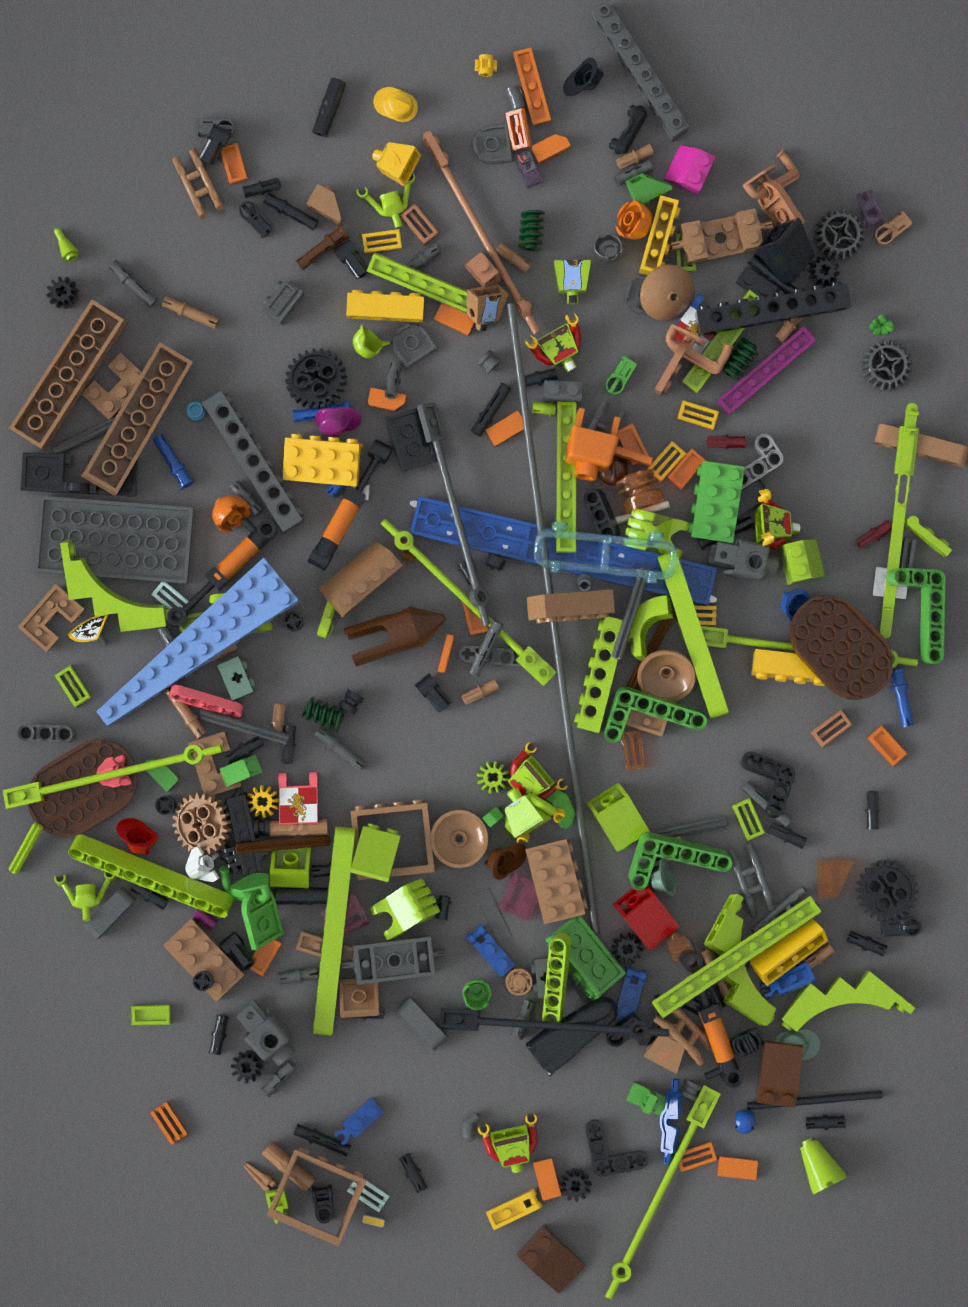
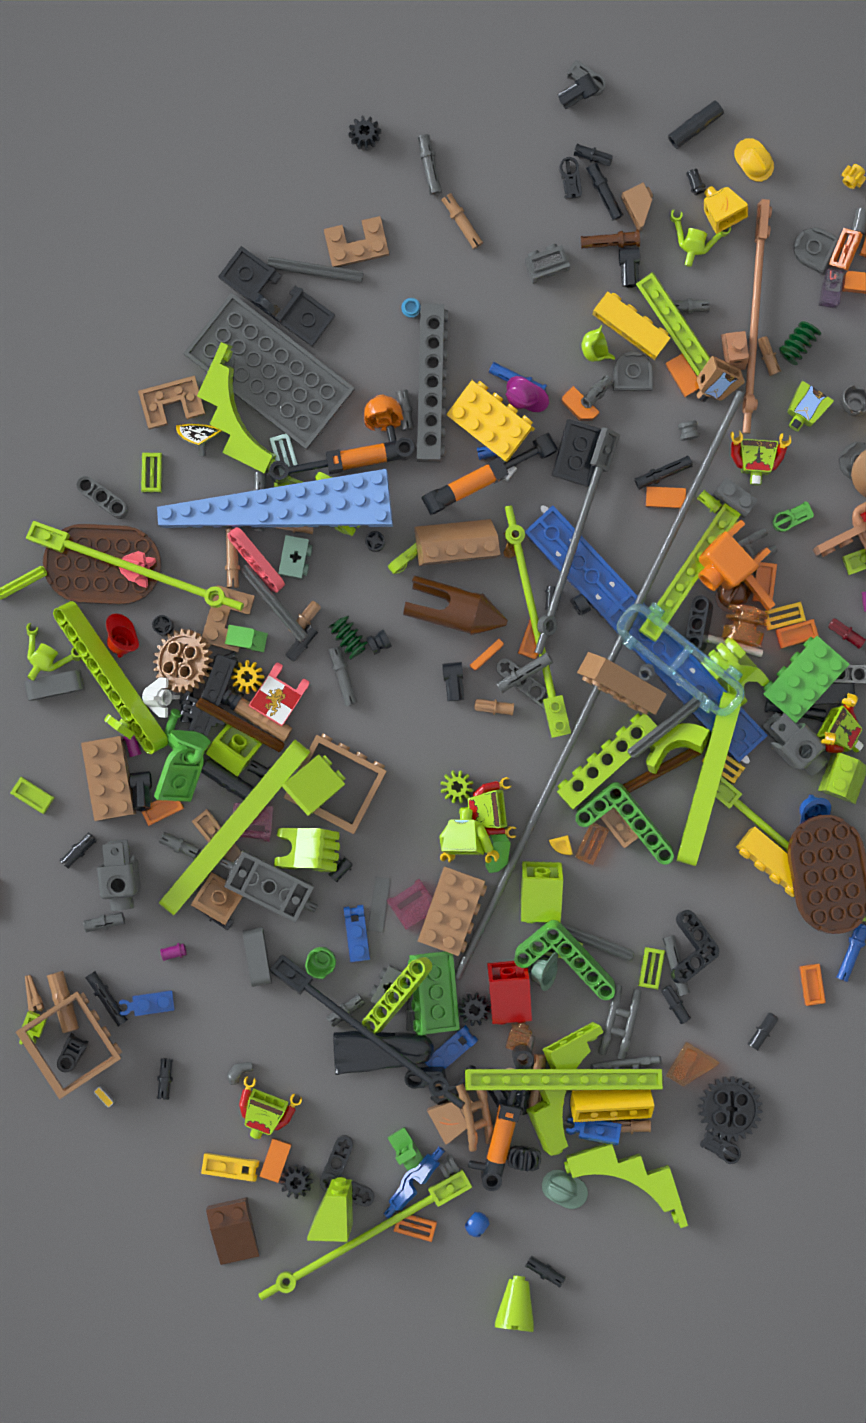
camera: 30 degrees right, 0 degrees up
(67, 249) = (393, 98): lime cone -> none
(68, 375) = (323, 205): medium nougat brick -> none
(137, 419) = (356, 280): medium nougat brick -> none
(150, 896) = (98, 693): black pin -> none
(163, 776) = (178, 600): bright green piece -> none
(177, 468) = (363, 347): blue pin -> none
(185, 910) = (121, 726): none -> lime plate
(199, 980) = (89, 795): black wheel -> none
(200, 172) = (549, 108): medium nougat piece -> none
(233, 164) = (582, 119): orange tile -> none
(240, 1067) = (78, 890): black gear -> none
(244, 750) = (261, 623): black pin -> none
(307, 393) = (547, 339): black gear -> none
(351, 1065) = (174, 951): none -> magenta pin
(361, 155) = (695, 182): none -> black pin
(365, 1200) = (109, 1076): light aqua tile -> none
(378, 242) = (662, 275): yellow tile -> none
(429, 236) = (708, 291): nougat tile -> none
(459, 853) = (378, 822): medium nougat dish -> none
(492, 816) = (434, 820): bright green piece -> none
(506, 860) = (421, 865): reddish brown piece -> none
(518, 981) = (363, 975): medium nougat wheel -> none
(540, 377) = (723, 472): black pin -> none
(609, 768) = (561, 845): none -> yellow tile
(624, 1189) = (335, 1213): none -> lime slope
(671, 684) = (662, 809): medium nougat dish -> none
(709, 426) = (838, 596): yellow tile -> none
(737, 1167) = (444, 1260): orange tile -> none
(779, 1074) = (533, 1204): reddish brown slope -> none
(818, 737) = (757, 938): nougat tile -> none
(822, 1099) = (548, 1246): black piece -> none
(867, 943) = (682, 1142): black pin -> none

